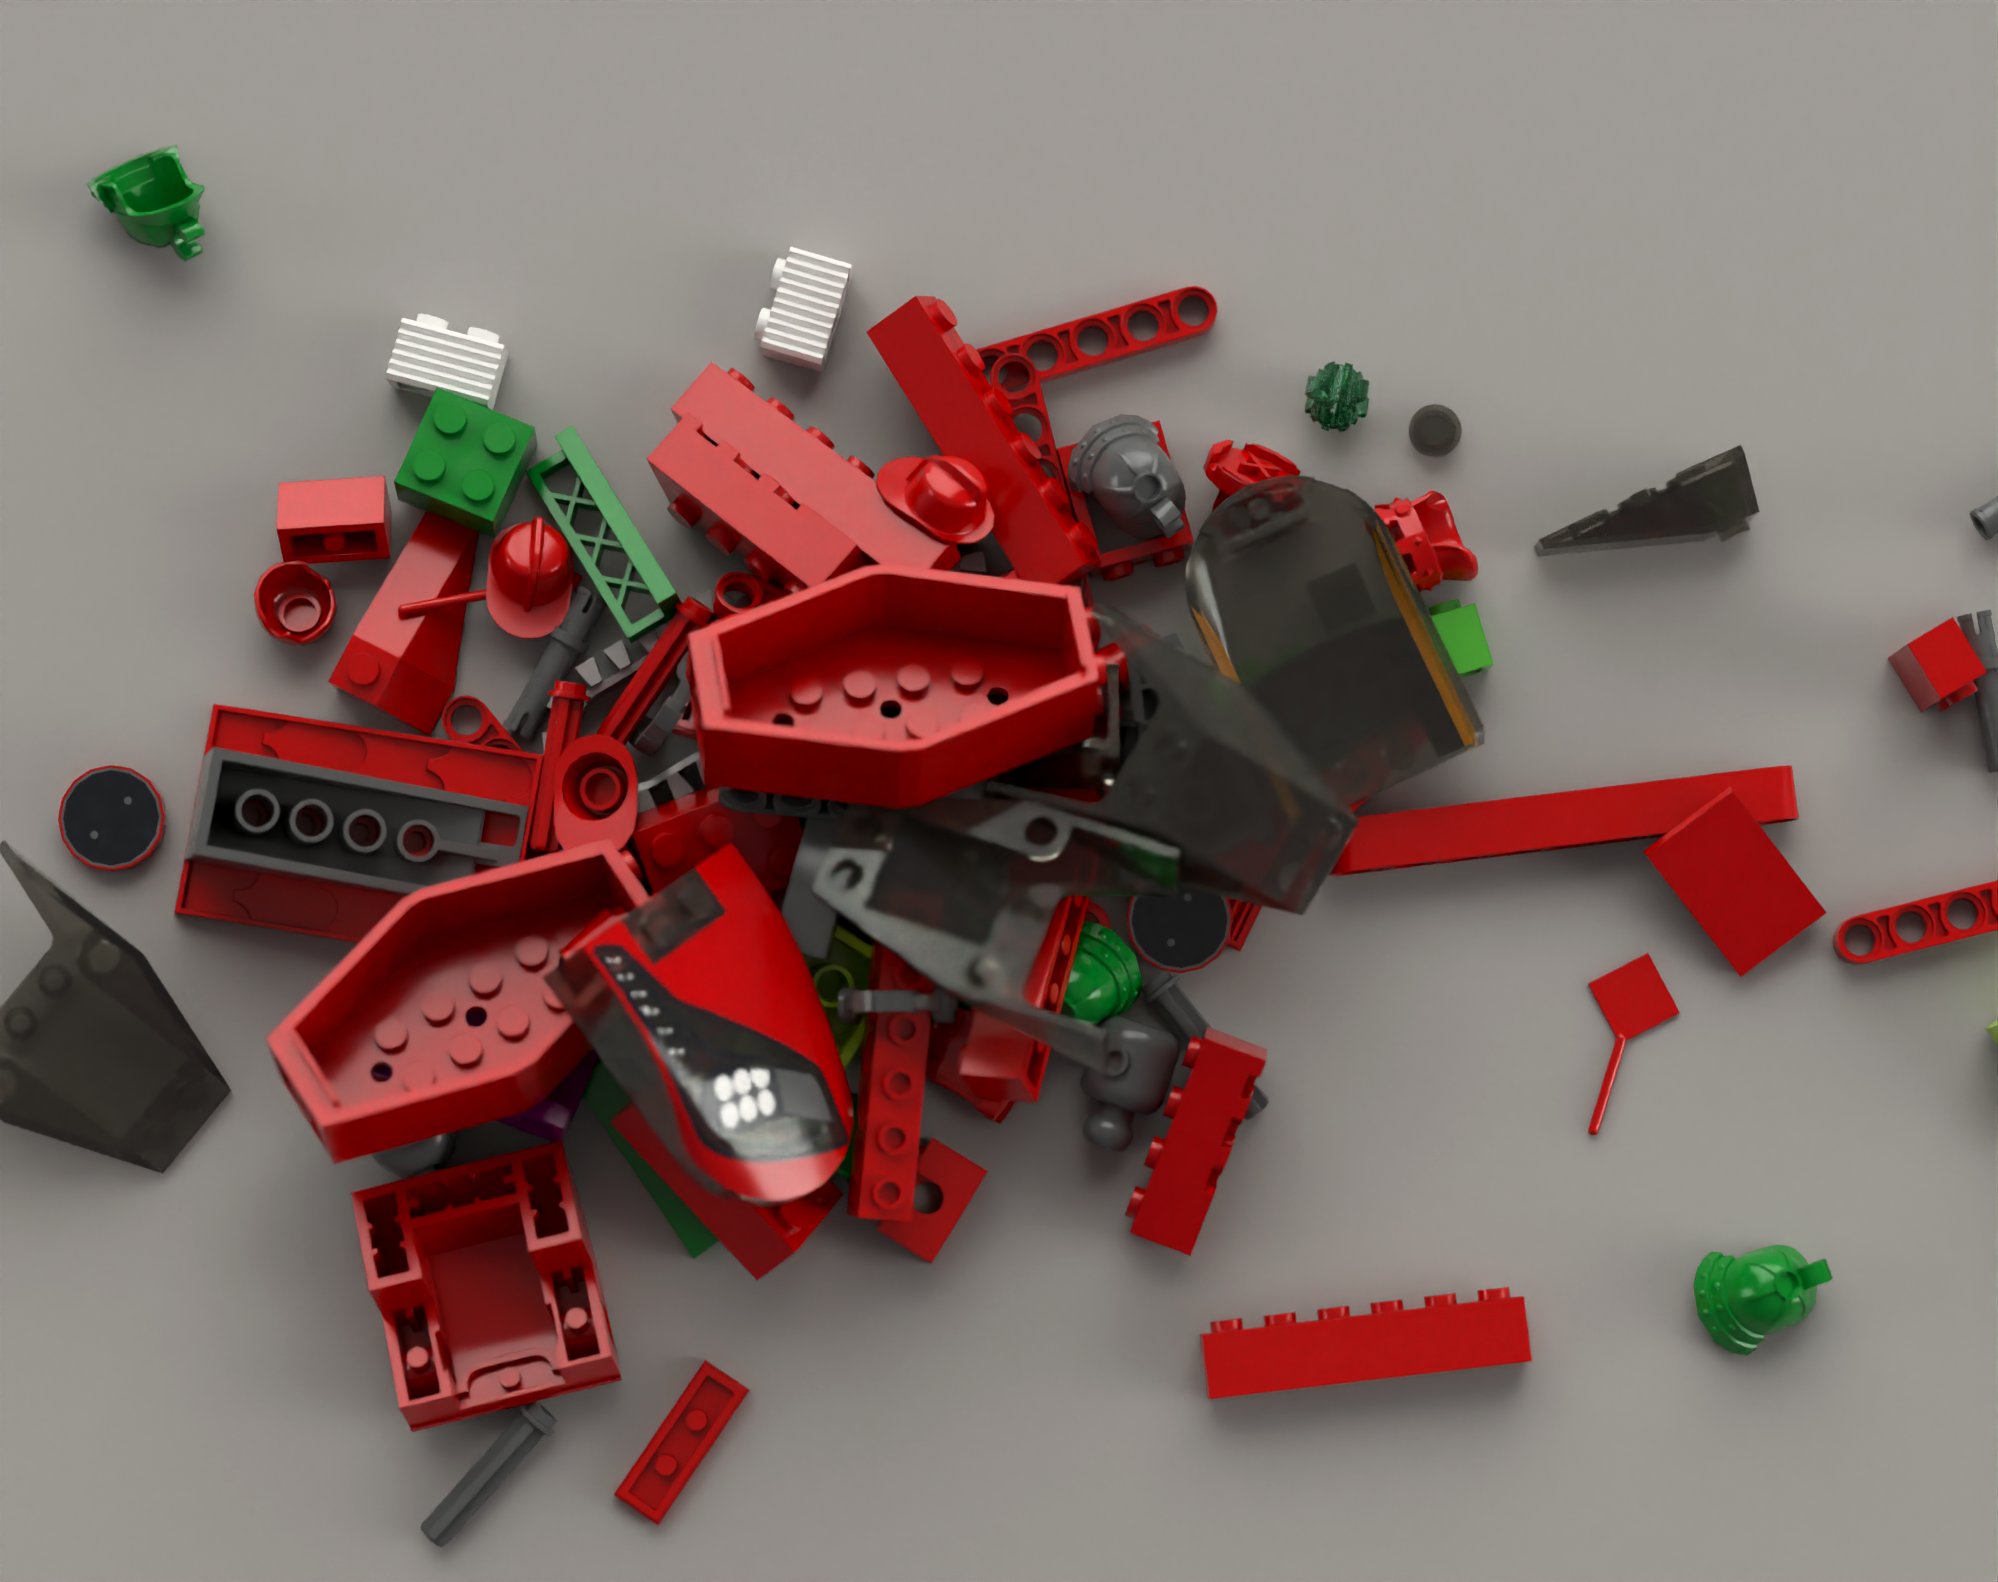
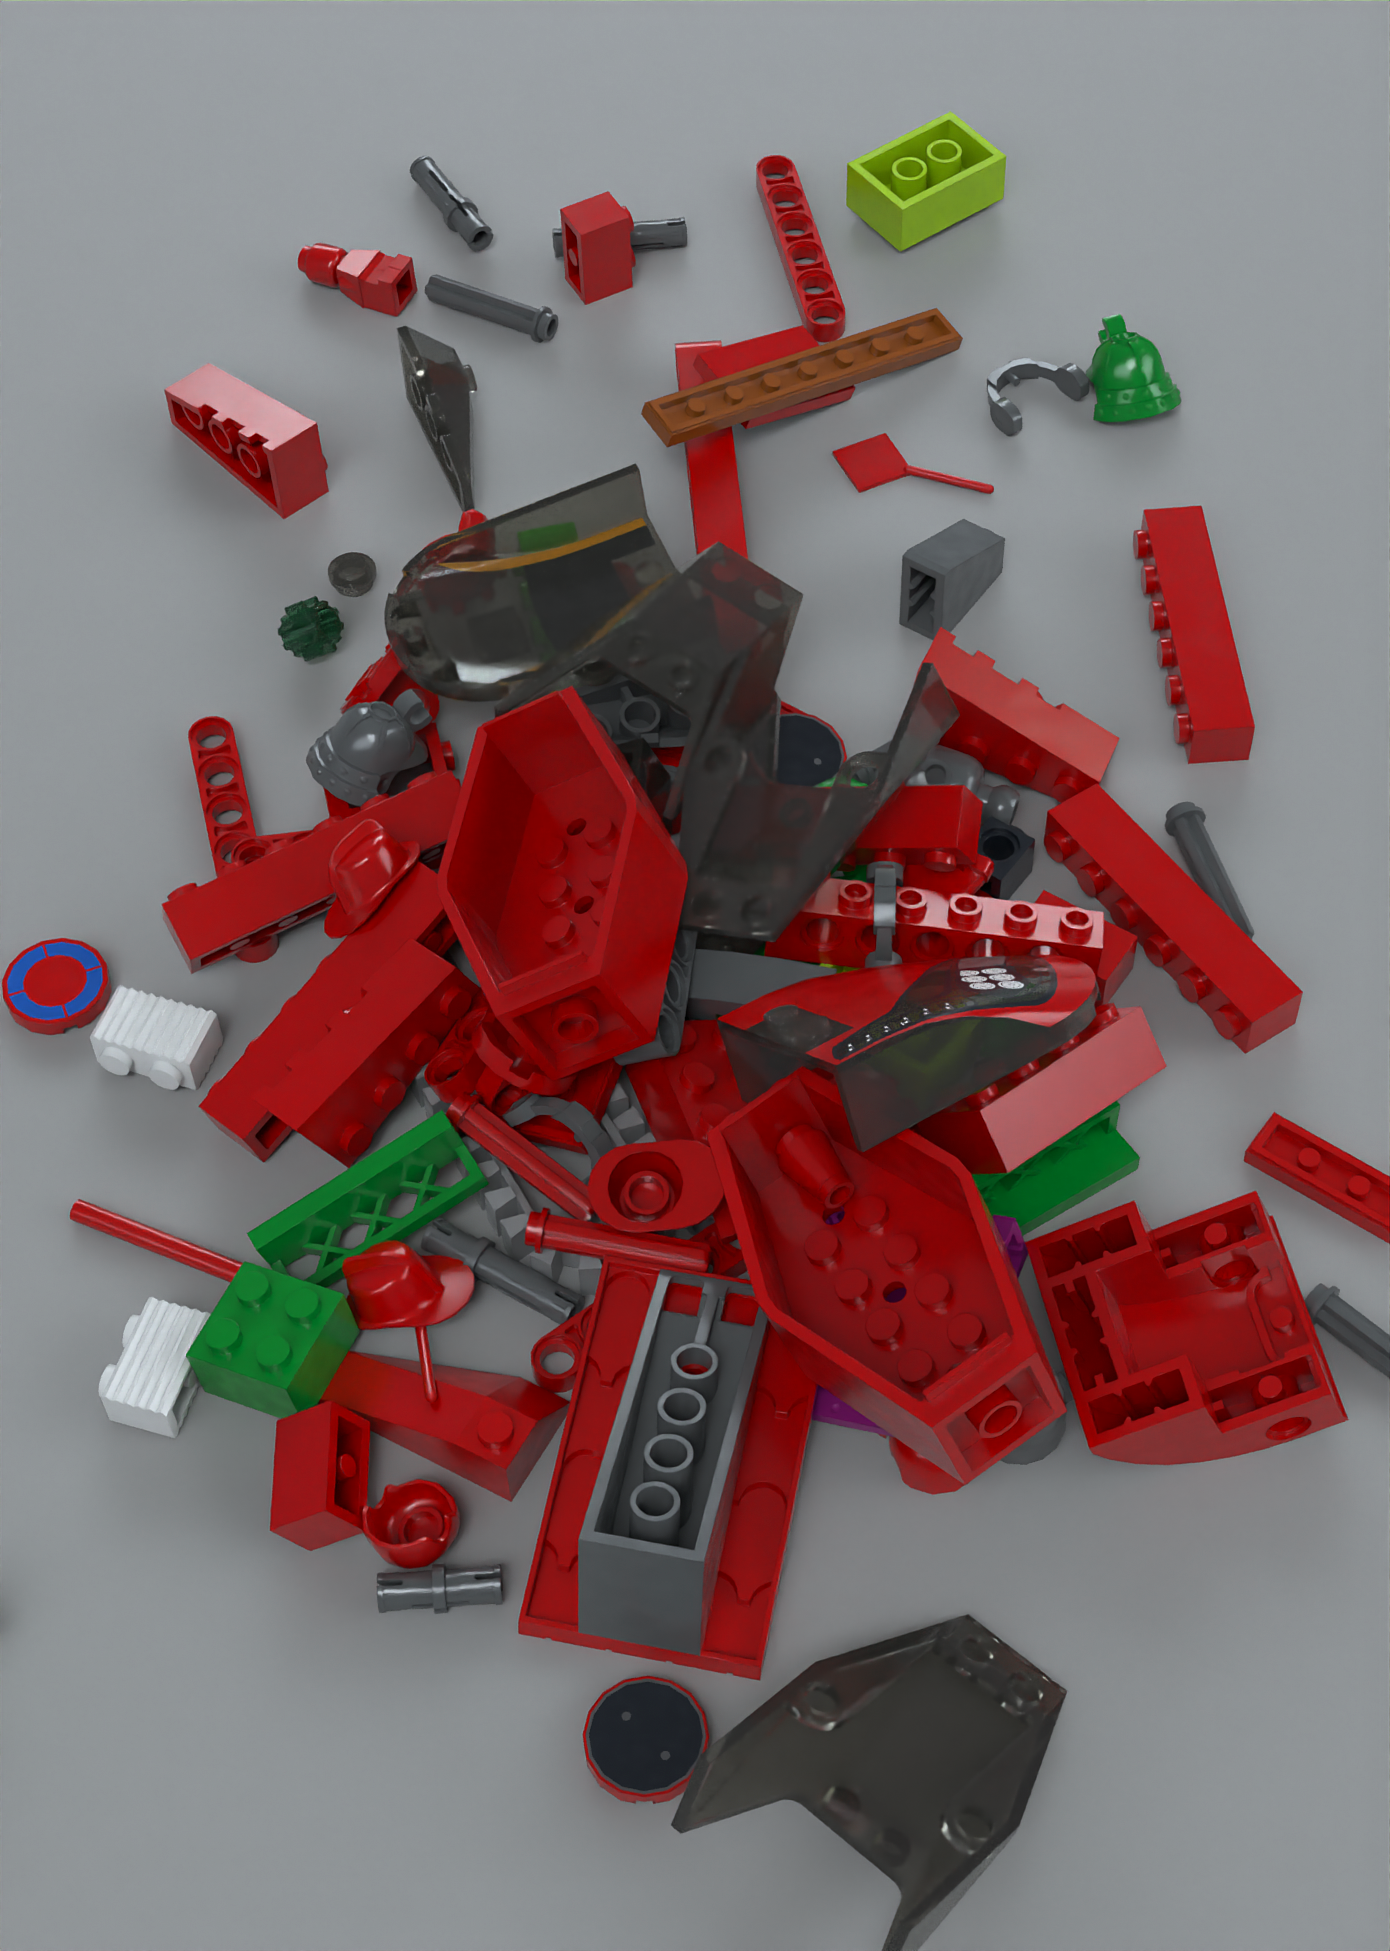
camera: 85 degrees left, 30 degrees down
(243, 634) = (439, 1588): none -> dark grey pin
(583, 356) = (154, 1240): none -> red bar
(876, 202) = (56, 986): none -> tile
(977, 1299) = (1172, 918): none -> red brick
(1017, 1128) = (1012, 857): none -> black brick
(1038, 1345) = (1186, 824): none -> dark grey axle
(1435, 1085) = (948, 576): none -> dark grey slope
(1627, 291) = (251, 437): none -> red wedge
(1722, 916) = (800, 377): none -> dark orange tile
(1785, 1170) = (1004, 414): none -> dark grey piece
(1863, 548) = (536, 322): none -> dark grey axle
(1908, 387) = (362, 275): none -> red piece

